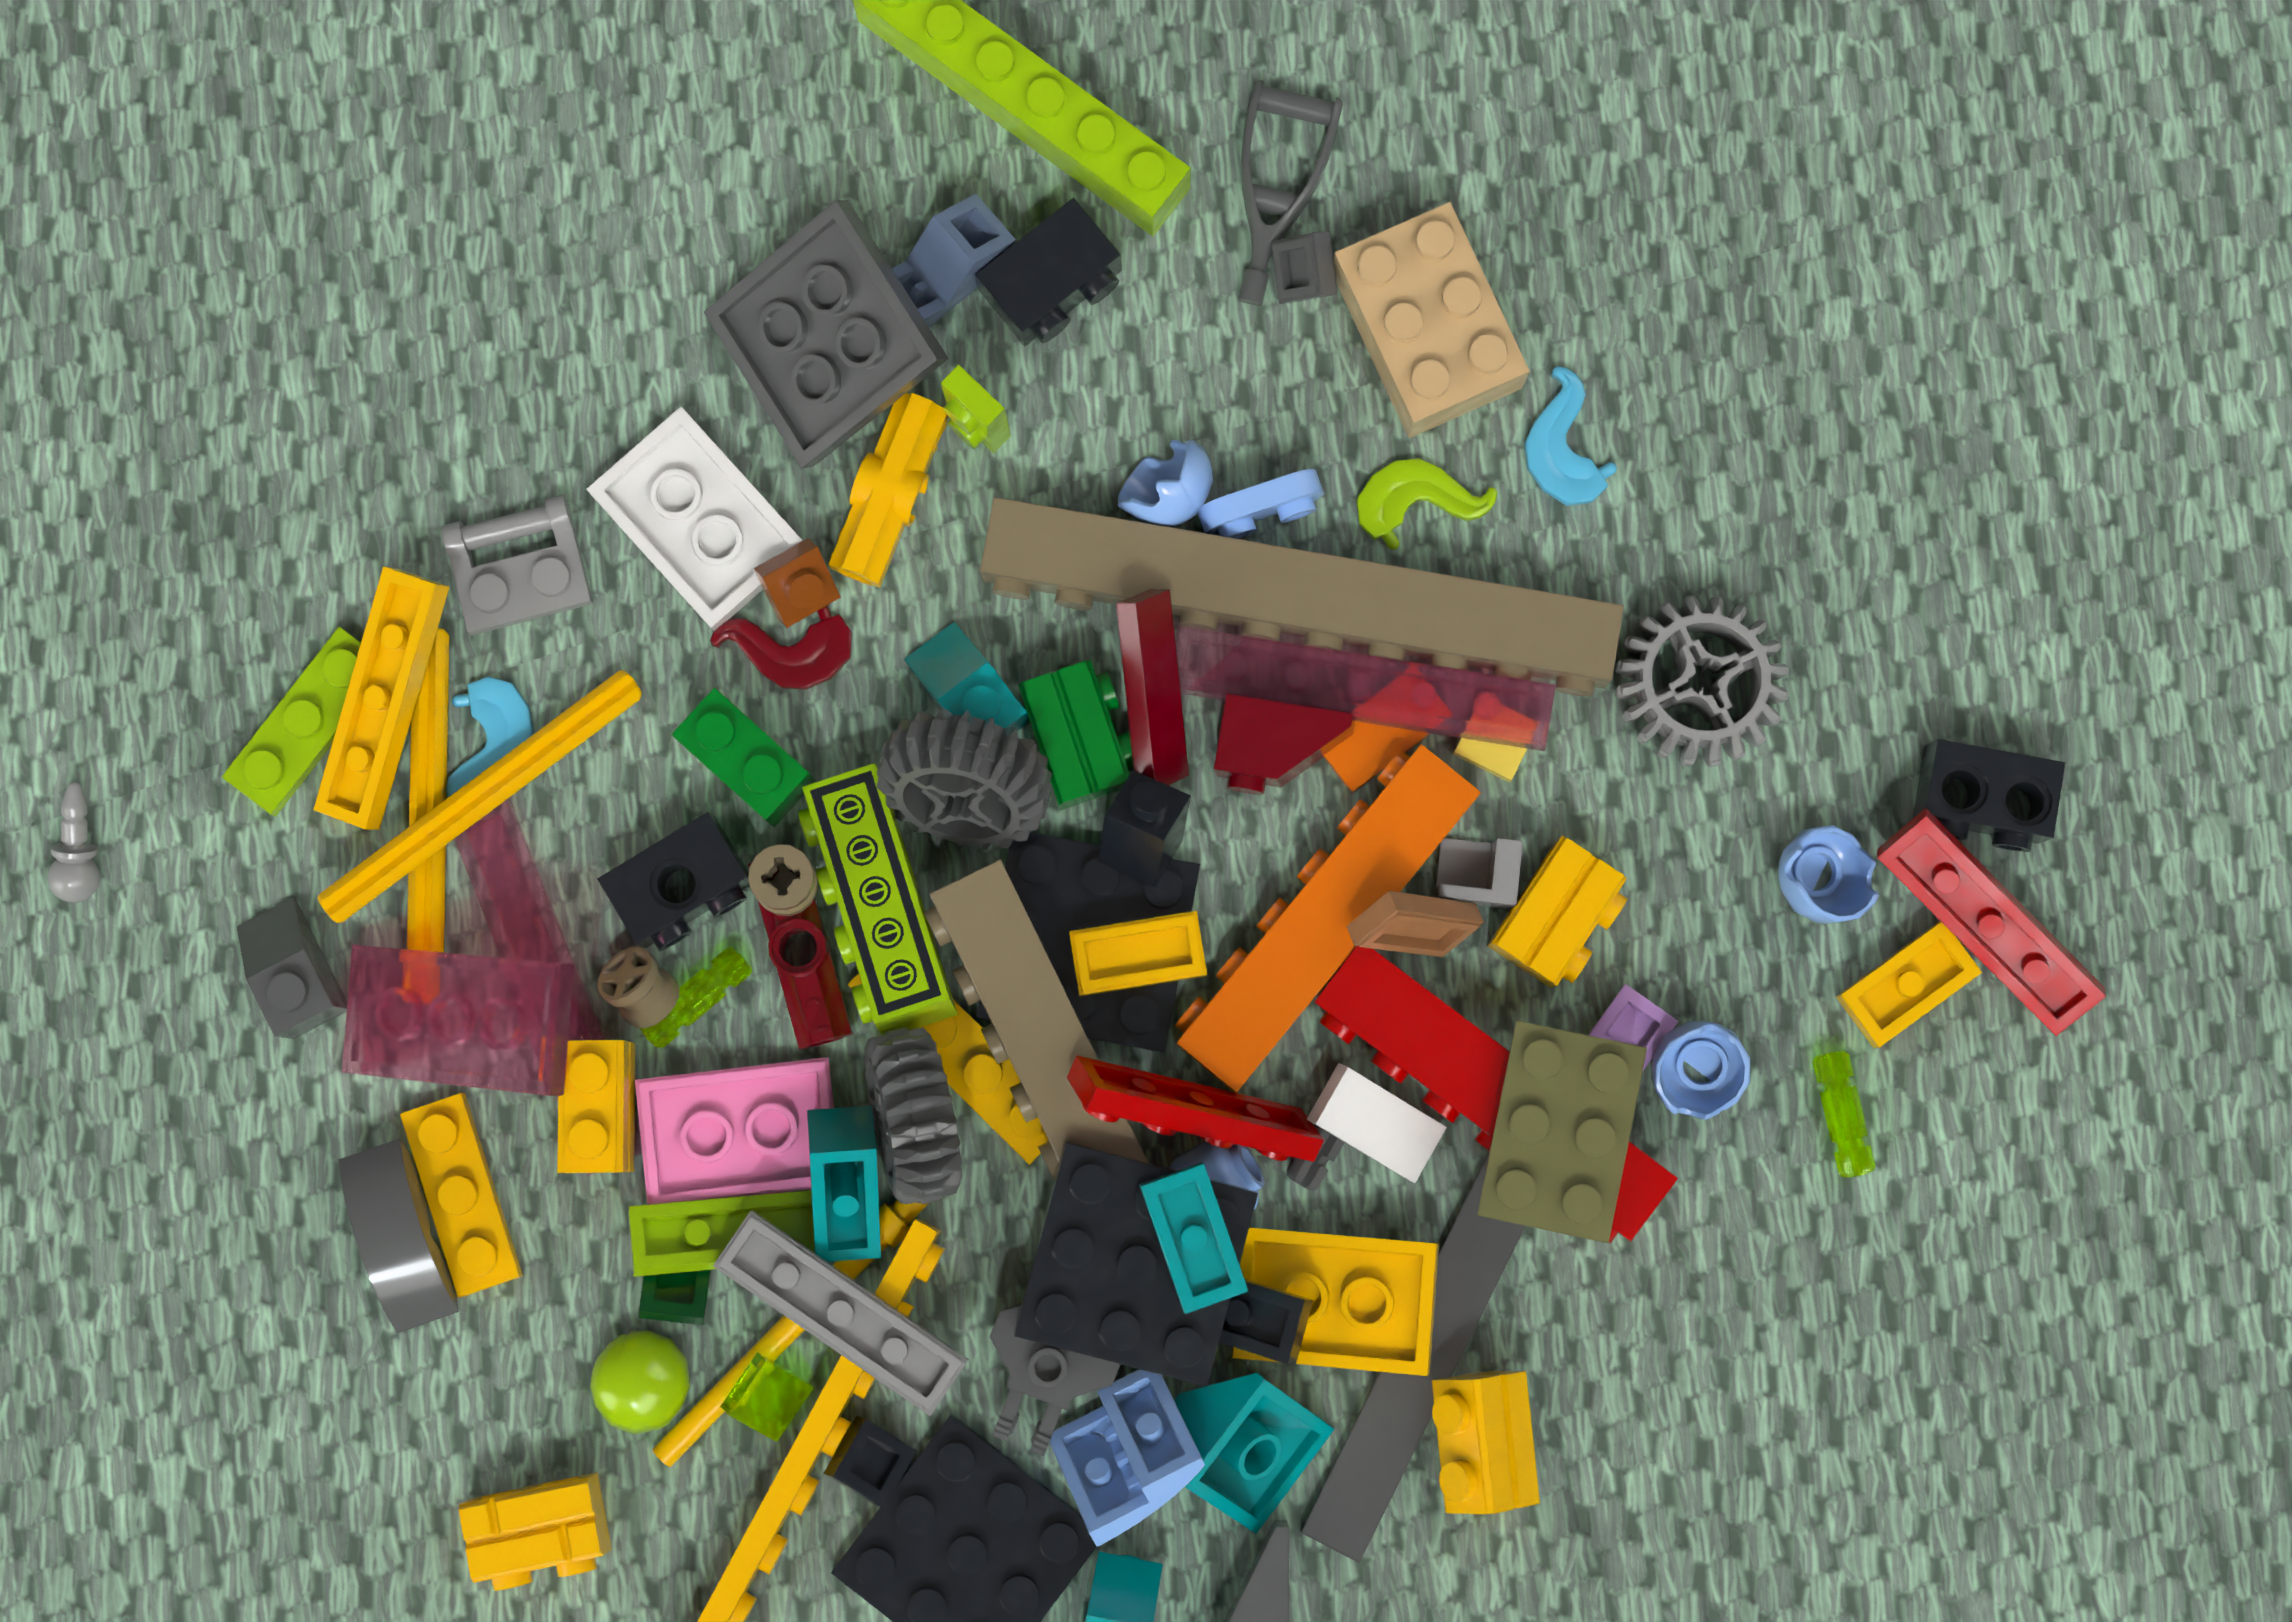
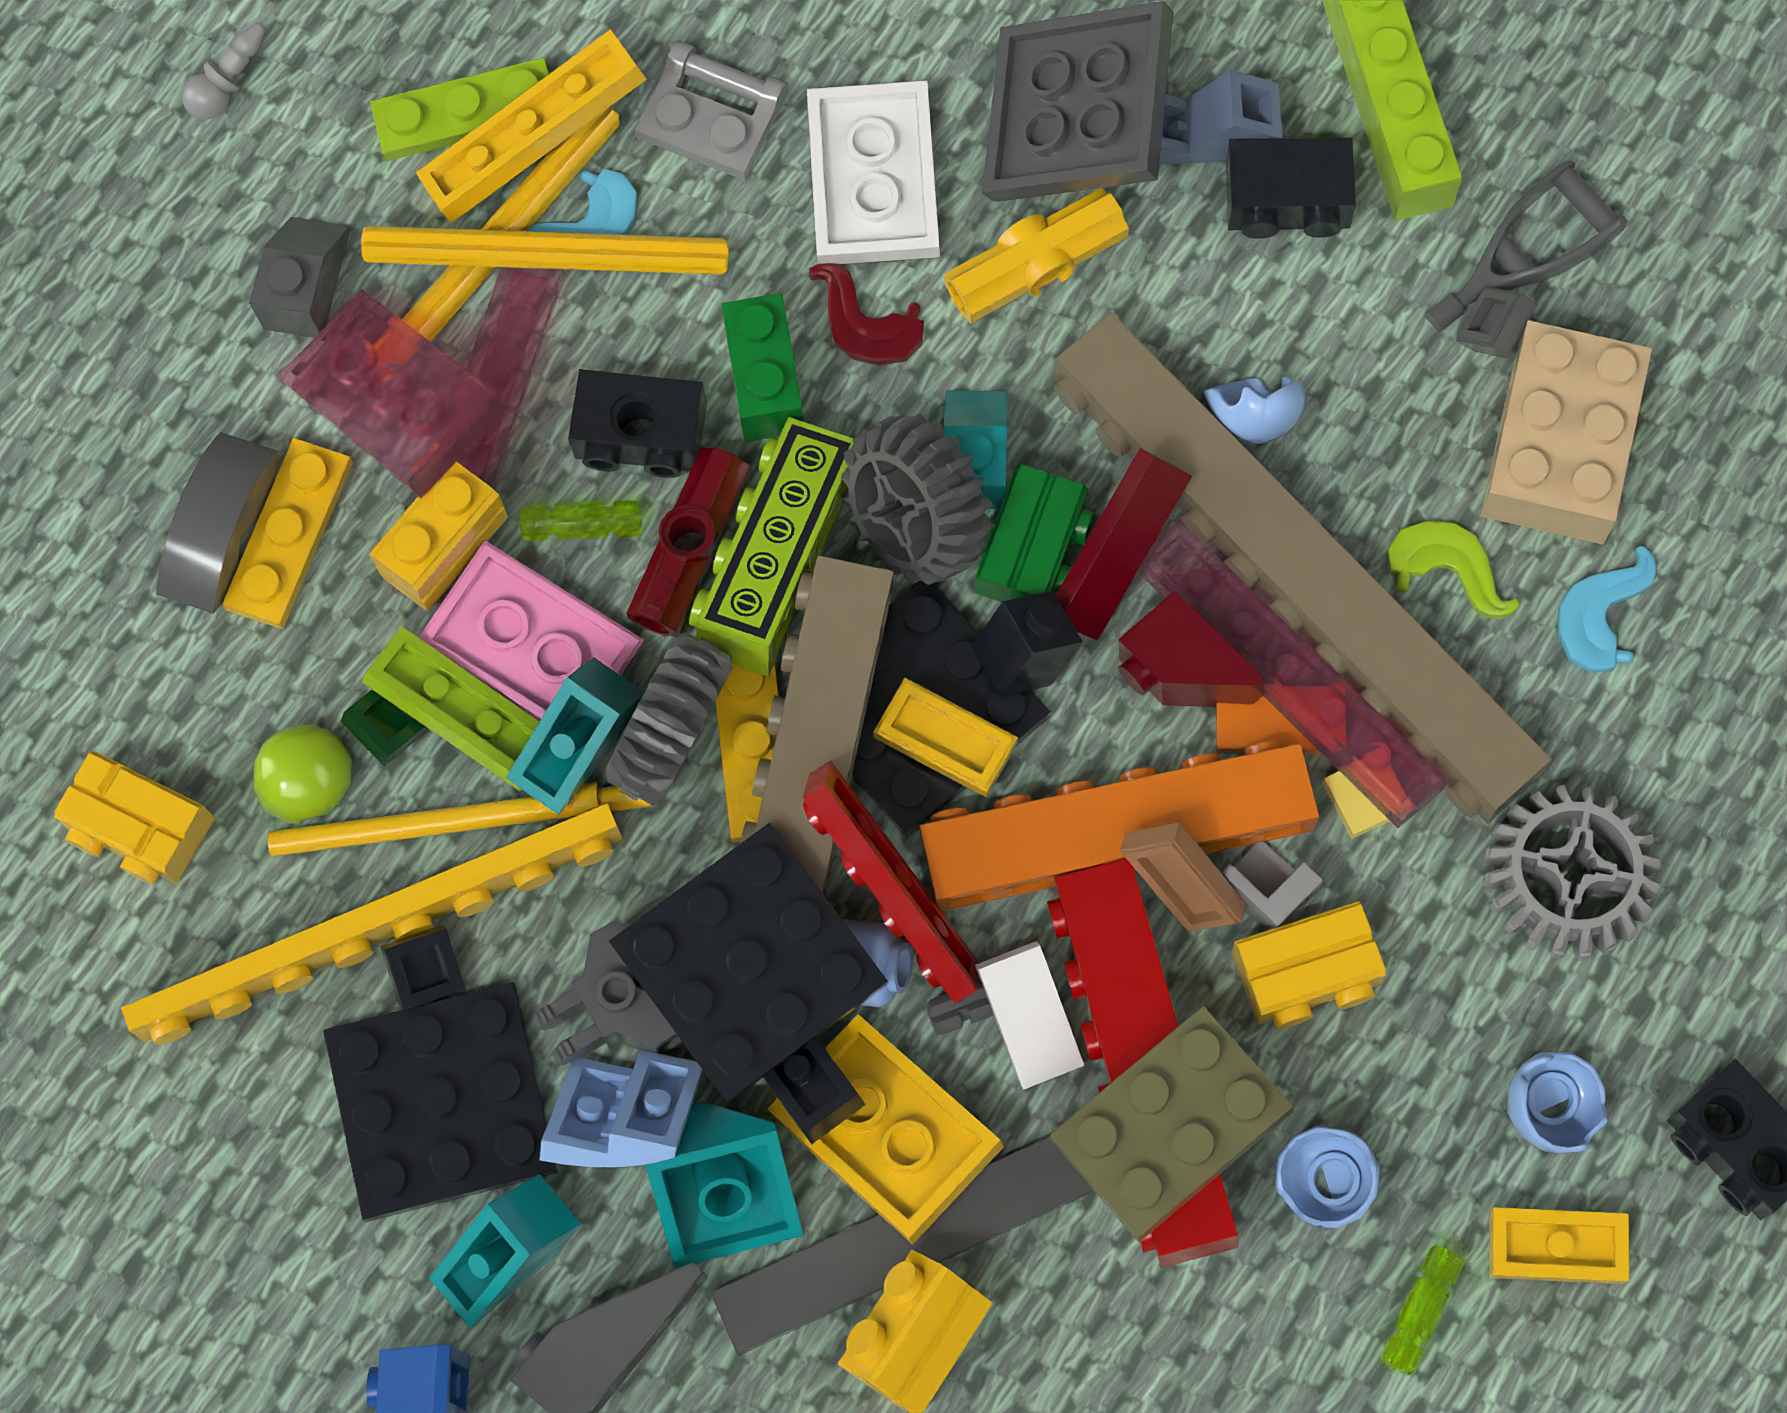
camera: 40 degrees right, 10 degrees down
(638, 987) = (544, 476): dark tan wheel -> none
(766, 1397) = (386, 857): clear neon green tile -> none
(786, 892) = (714, 484): dark tan wheel -> none
(797, 582) = (909, 271): dark orange plate -> none
(841, 1312) = (493, 828): light grey tile -> none
(974, 412) = (1146, 238): lime plate -> none
(1193, 1237) = (807, 966): teal plate -> none
(1287, 496) = (1342, 481): light blue plate -> none
(1634, 1021) = (1311, 1098): lavender plate -> none
(1991, 922) = (1668, 1245): plate -> none

